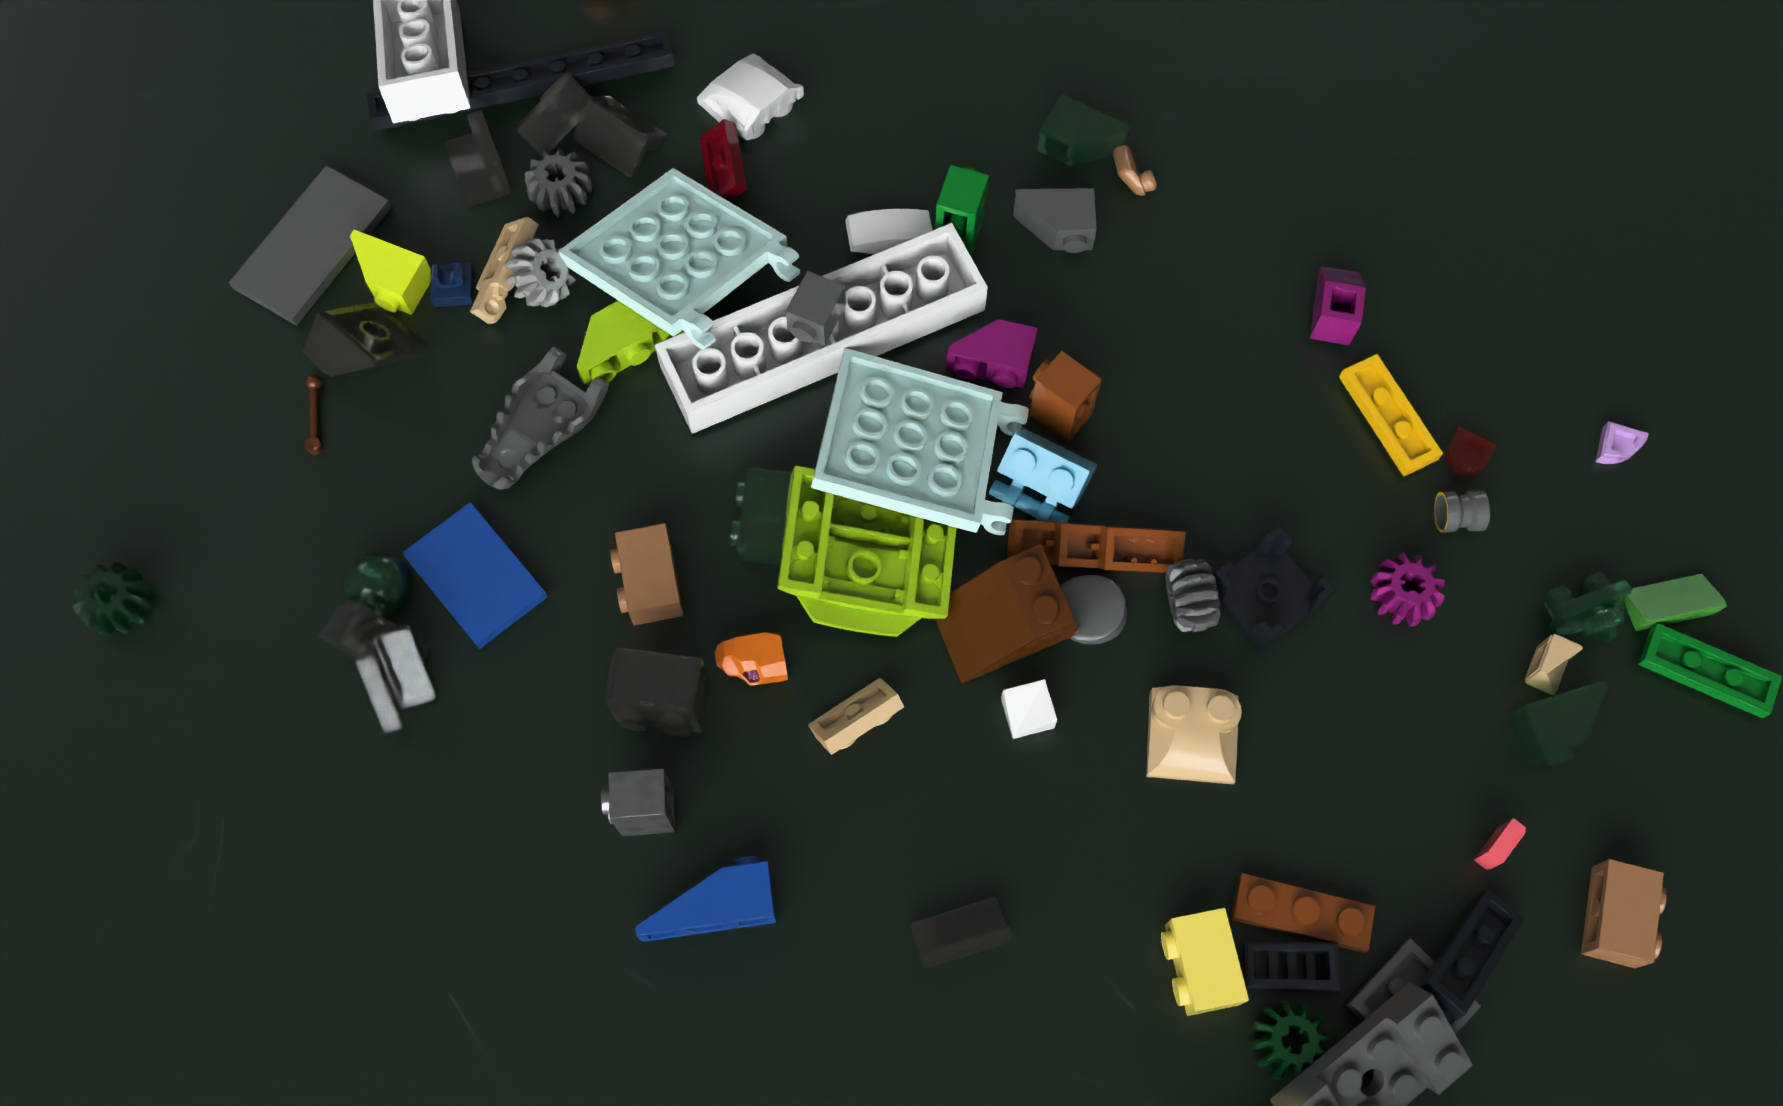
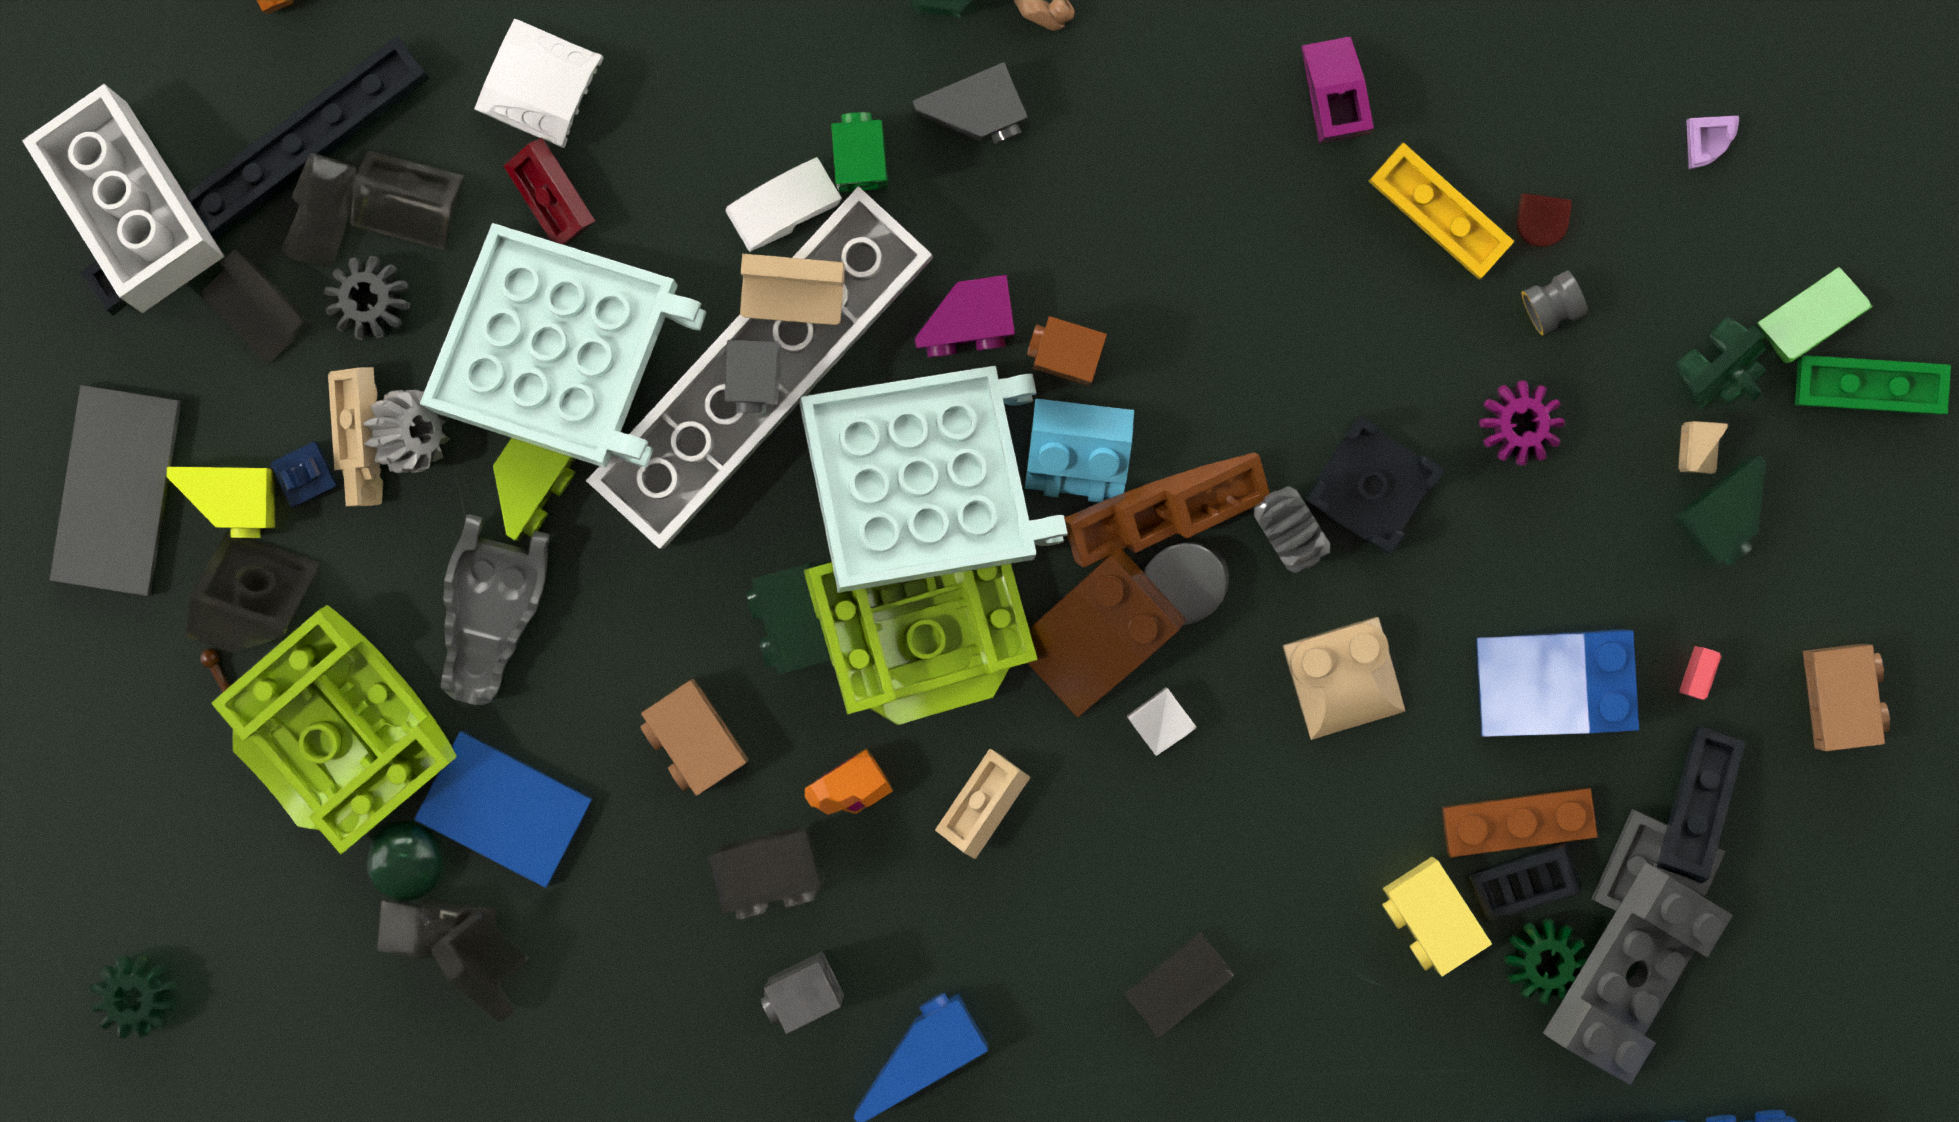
camera: 15 degrees left, 20 degrees up
(374, 456) = (333, 729): none -> lime slope
(873, 264) = (792, 289): none -> tan panel
(1376, 806) = (1557, 683): none -> slope

